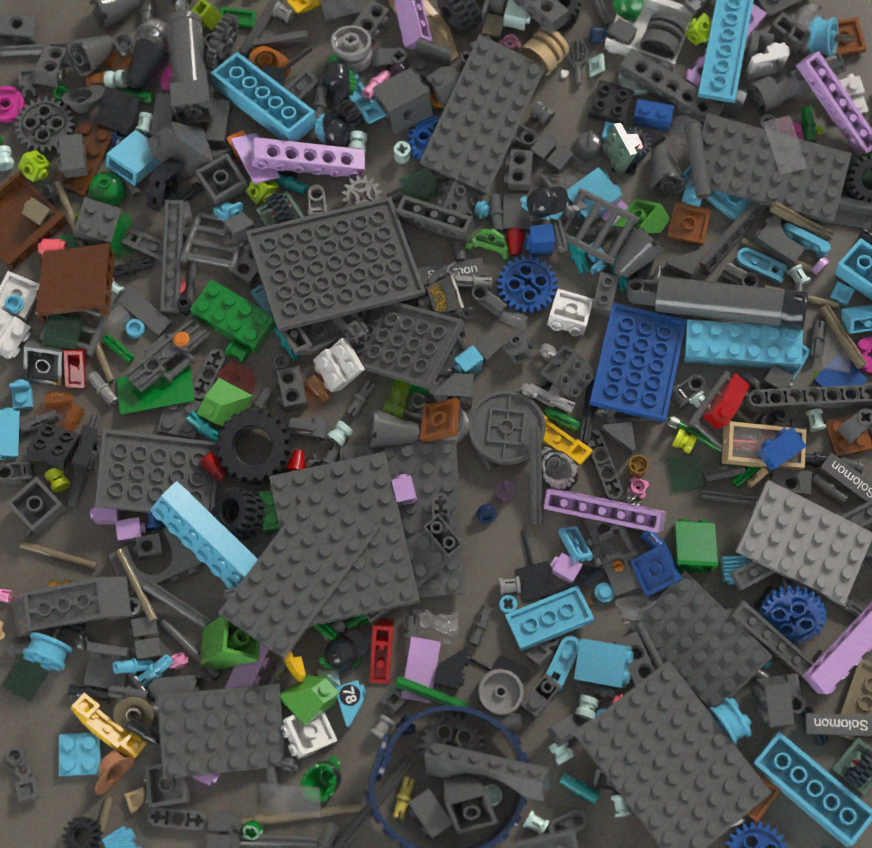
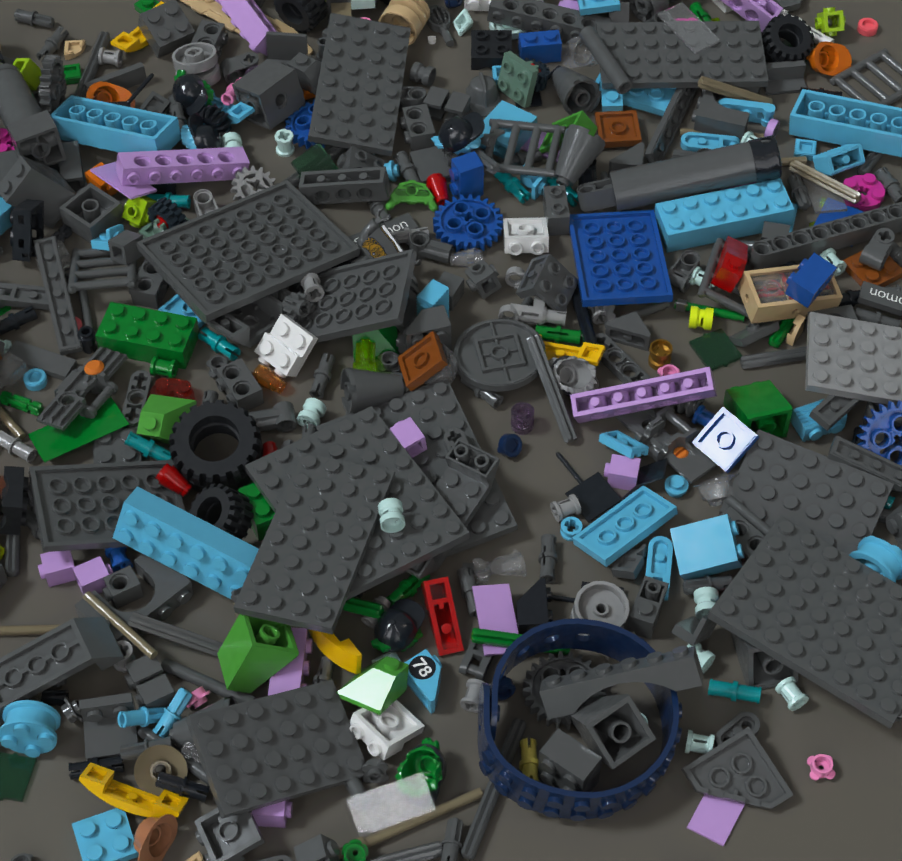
camera: 15 degrees left, 20 degrees down
(362, 570) = (390, 511): none -> light aqua wheel
(375, 318) = (315, 288): none -> light grey bush

